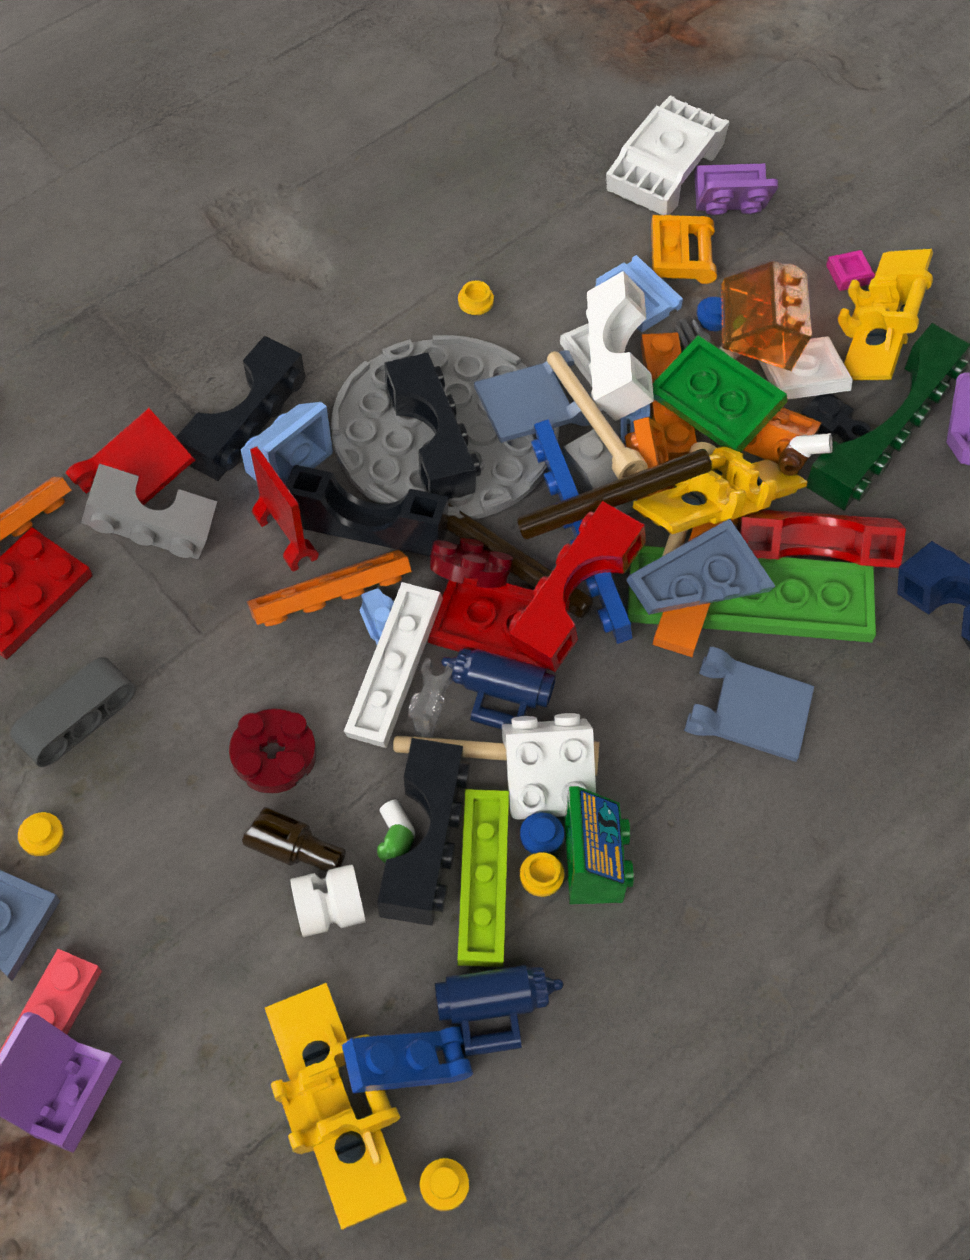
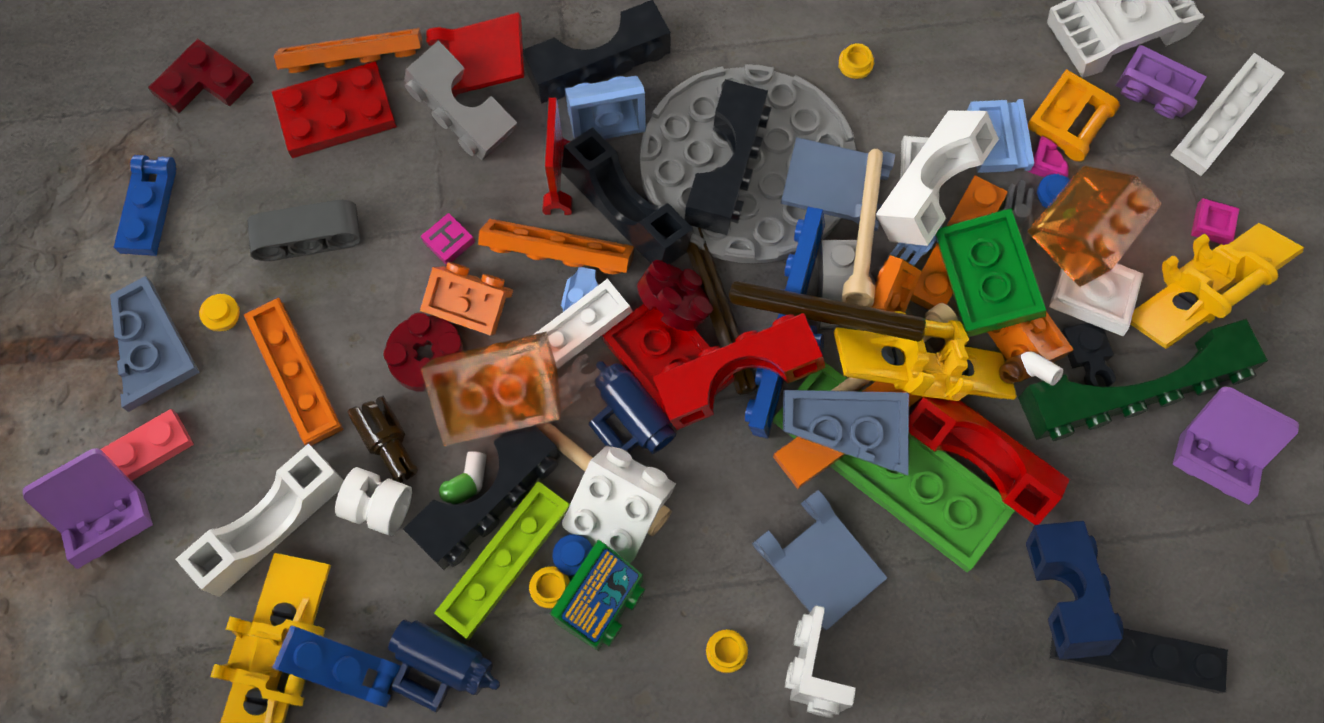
camera: 35 degrees right, 10 degrees up
(156, 843) = (293, 372): none -> orange tile
(219, 641) = (447, 239): none -> dark pink tile
(226, 1021) = (232, 550): none -> white arch
(278, 679) = (465, 298): none -> orange bracket
(373, 729) = (494, 388): none -> clear orange slope
(690, 292) = (1048, 159): none -> dark pink tile
(732, 827) = (726, 651): none -> yellow plate
(799, 186) = (1227, 114): none -> white plate
(814, 798) = (822, 696): none -> white bracket

